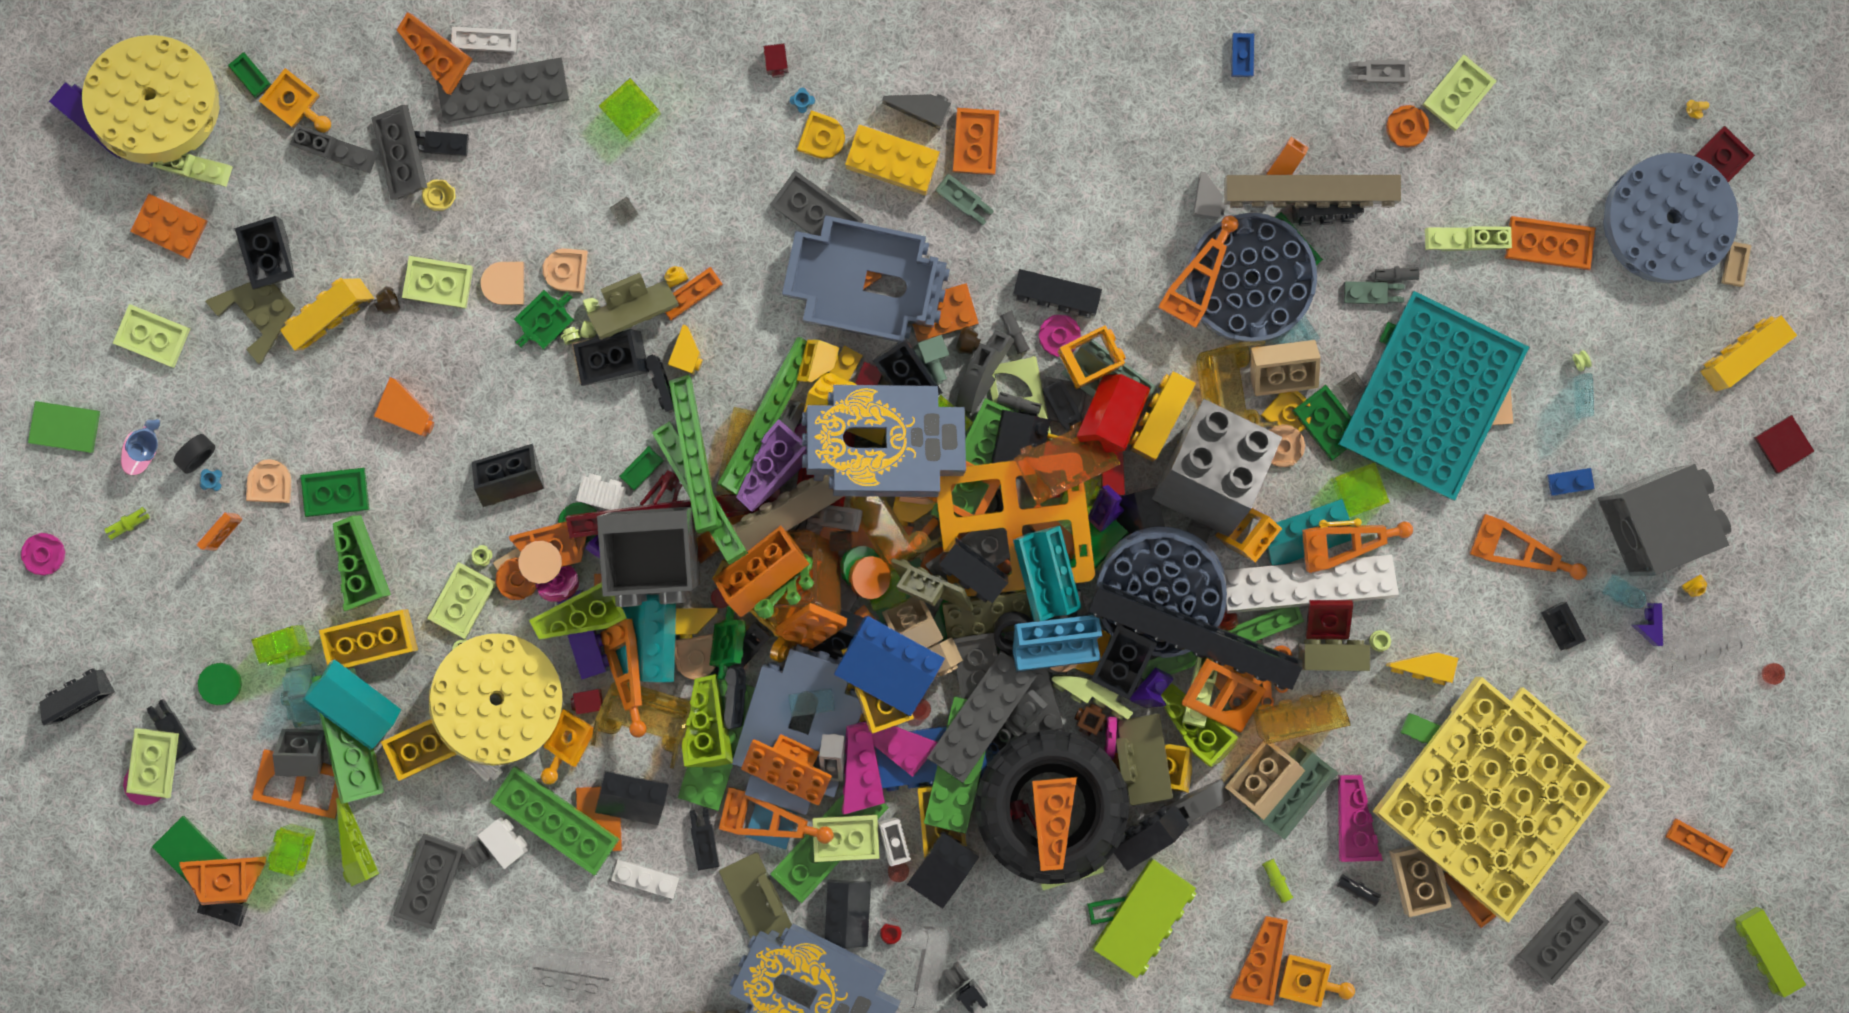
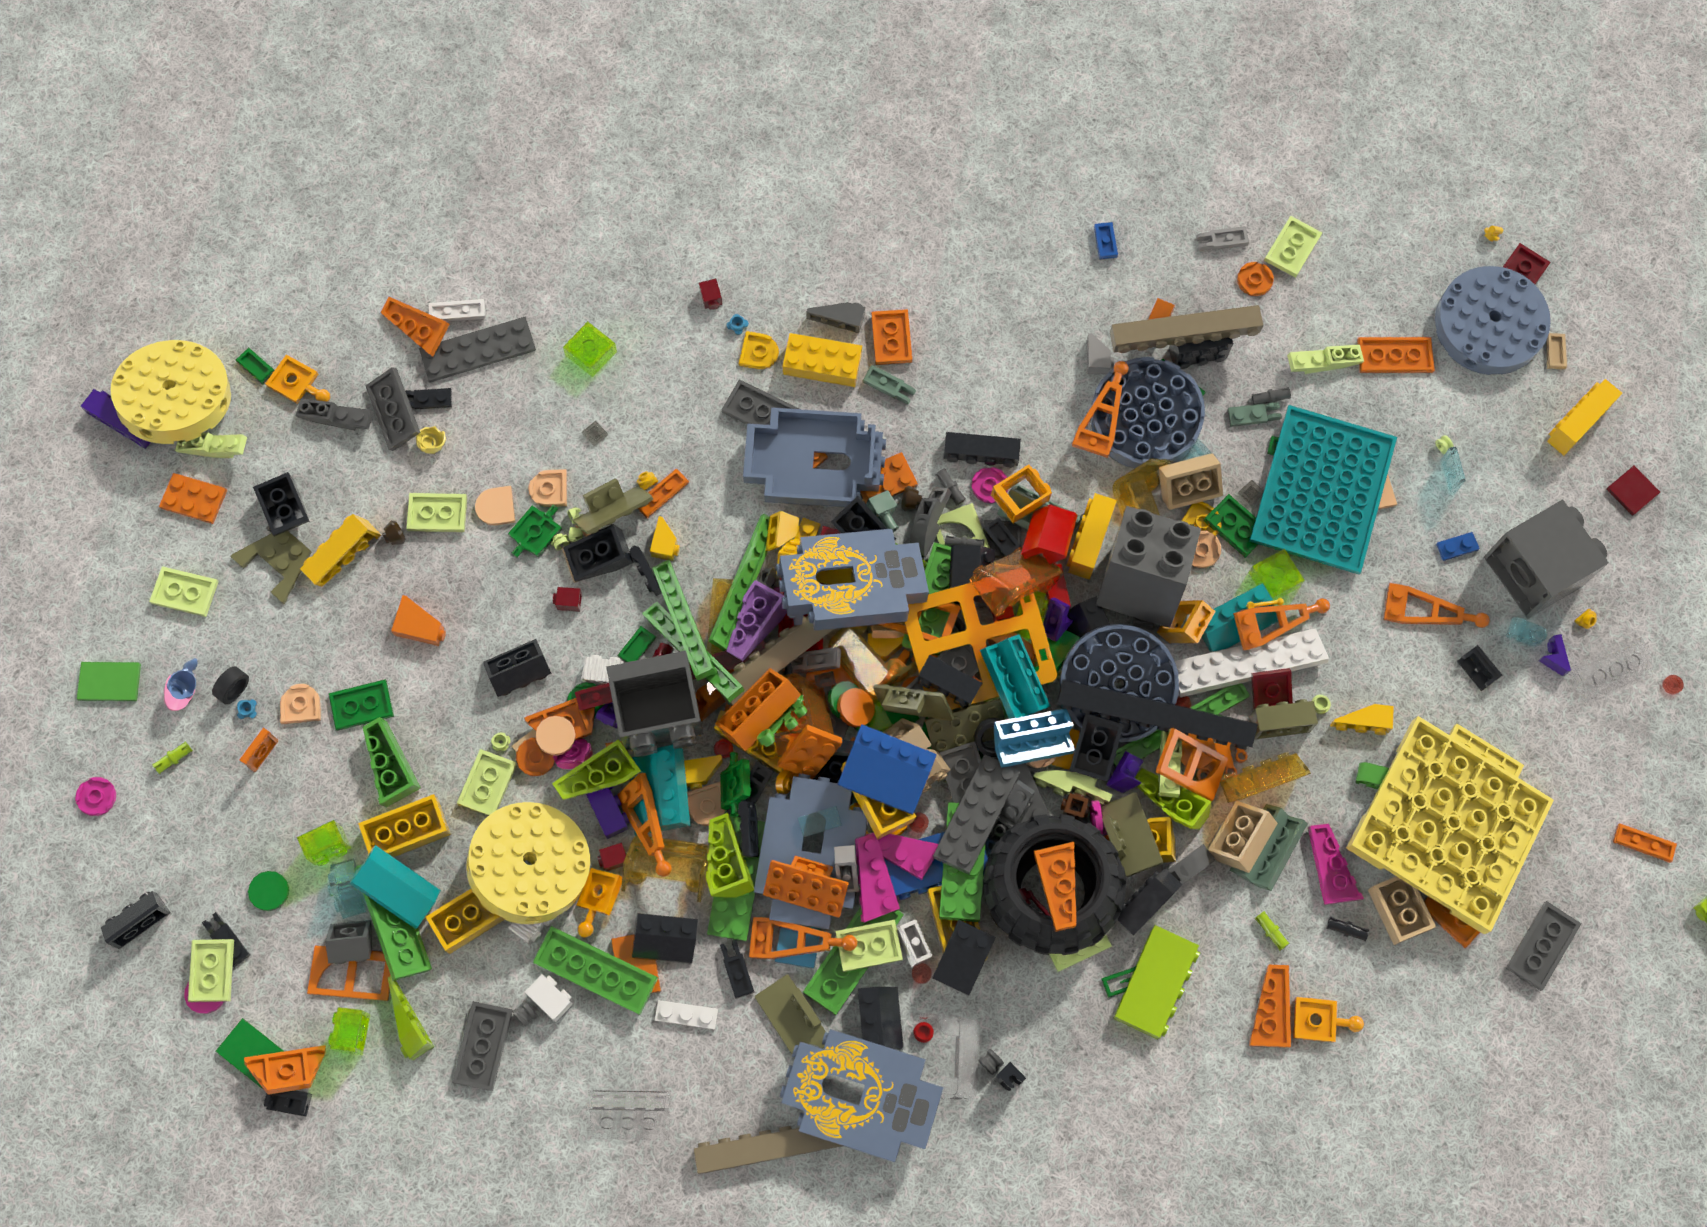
camera: 10 degrees left, 15 degrees down
(571, 405) = (568, 599): none -> dark red brick

